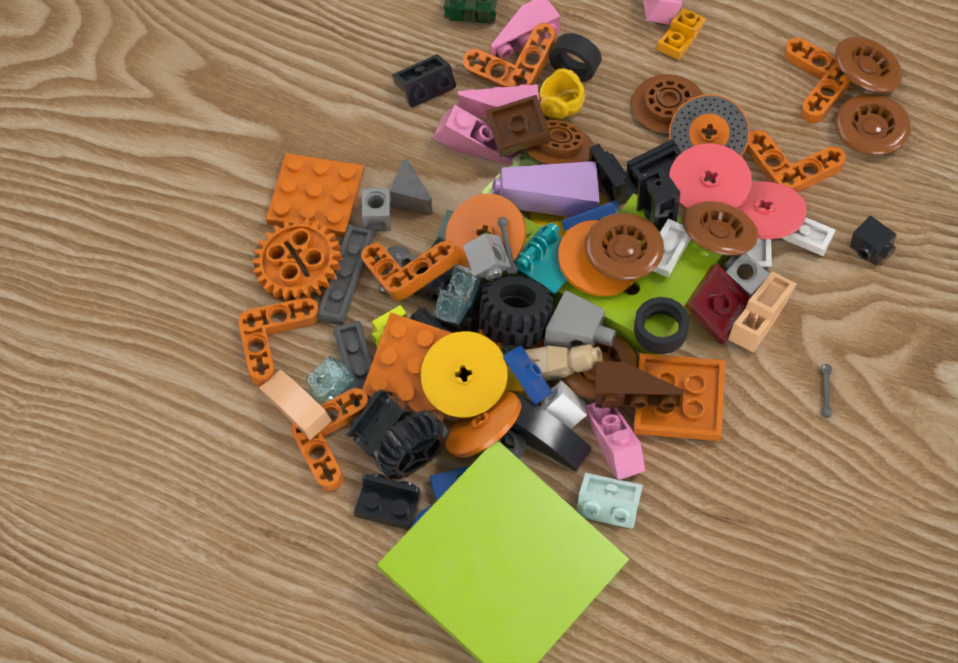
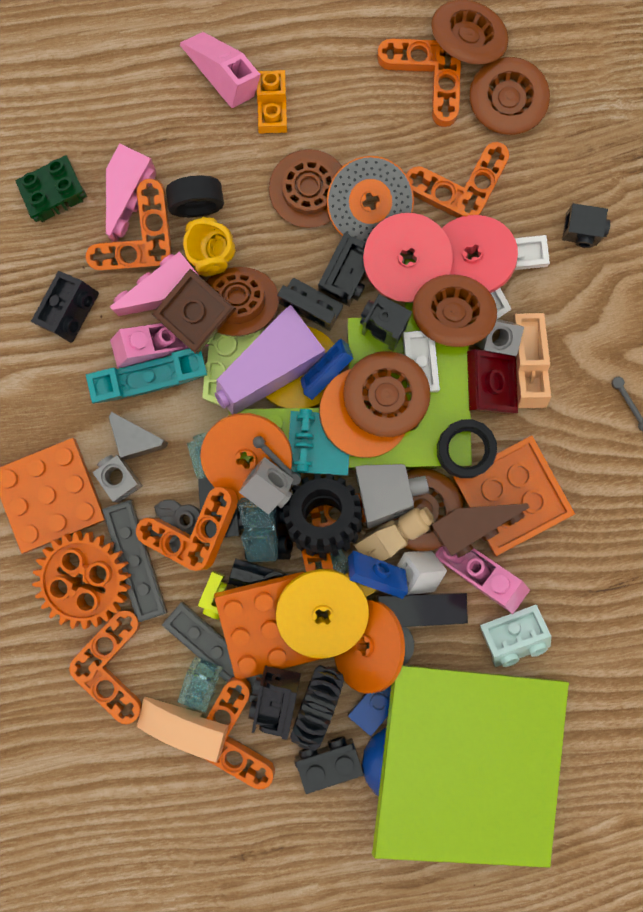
camera: 30 degrees left, 25 degrees up
(449, 158) = (146, 376): none -> teal slope

